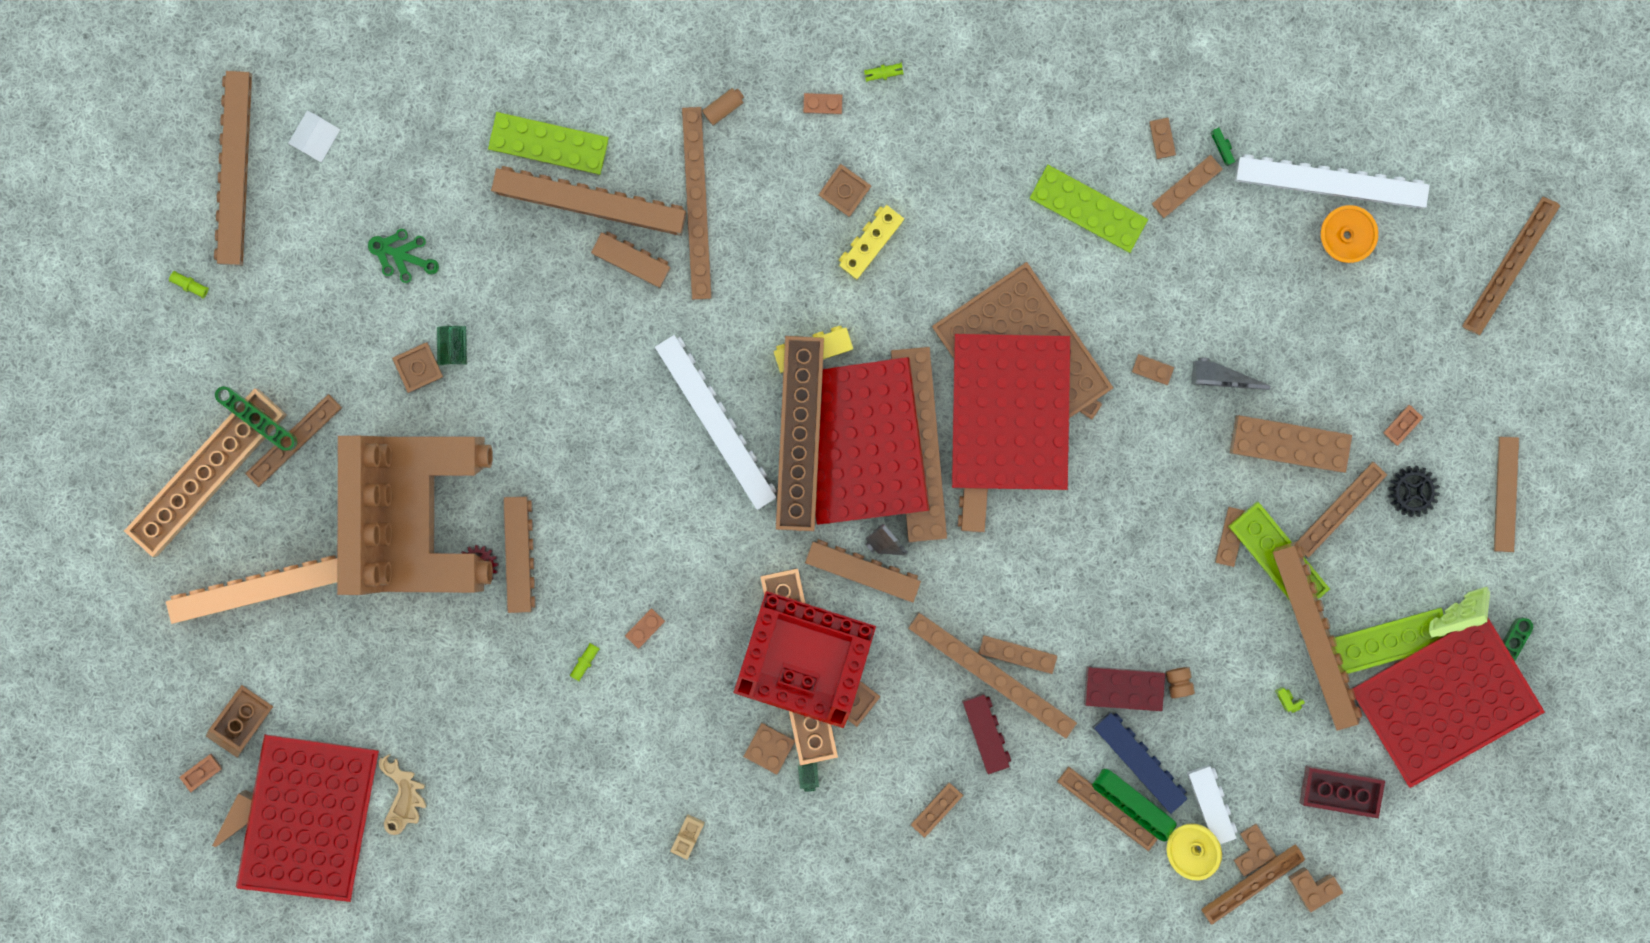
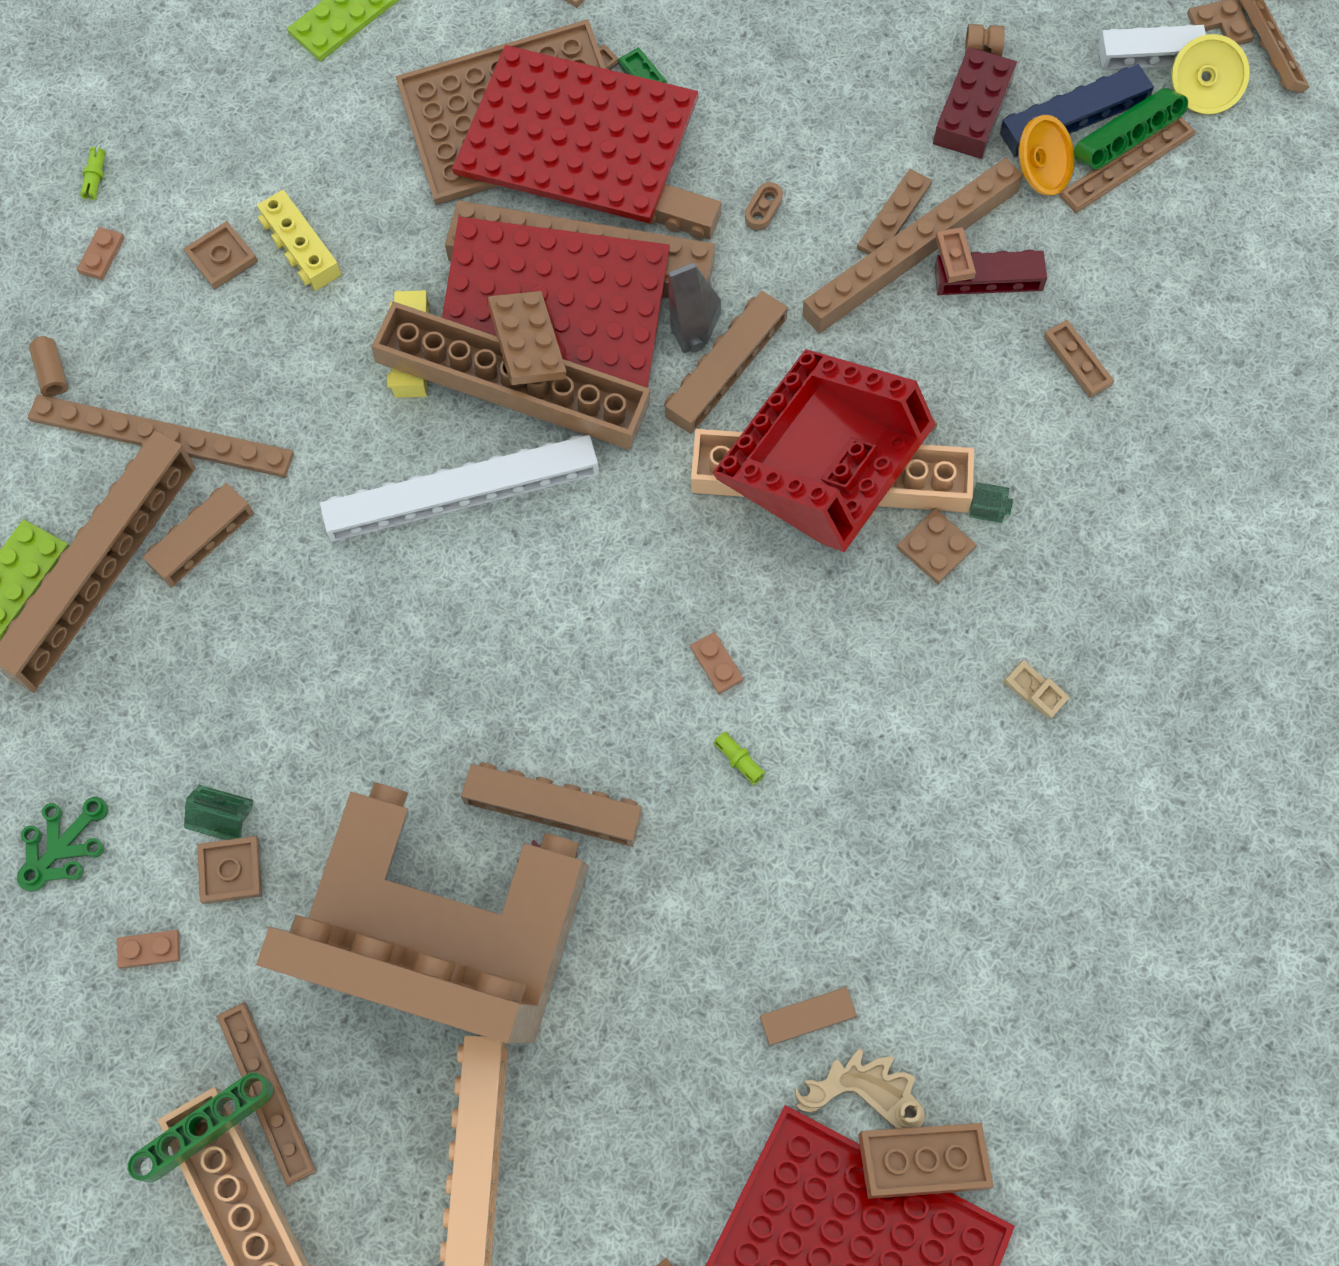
camera: 70 degrees left, 20 degrees down
(355, 336) = (148, 949): none -> nougat plate
(369, 841) = (925, 1160): none -> medium nougat plate
(436, 749) = (808, 1016): none -> medium nougat tile
(824, 437) = (526, 338): none -> medium nougat plate
(983, 708) = (955, 255): none -> nougat plate
(996, 561) = (762, 207): none -> medium nougat plate
(1084, 439) = (639, 65): none -> green plate
(1087, 751) = (1046, 155): none -> light orange dish

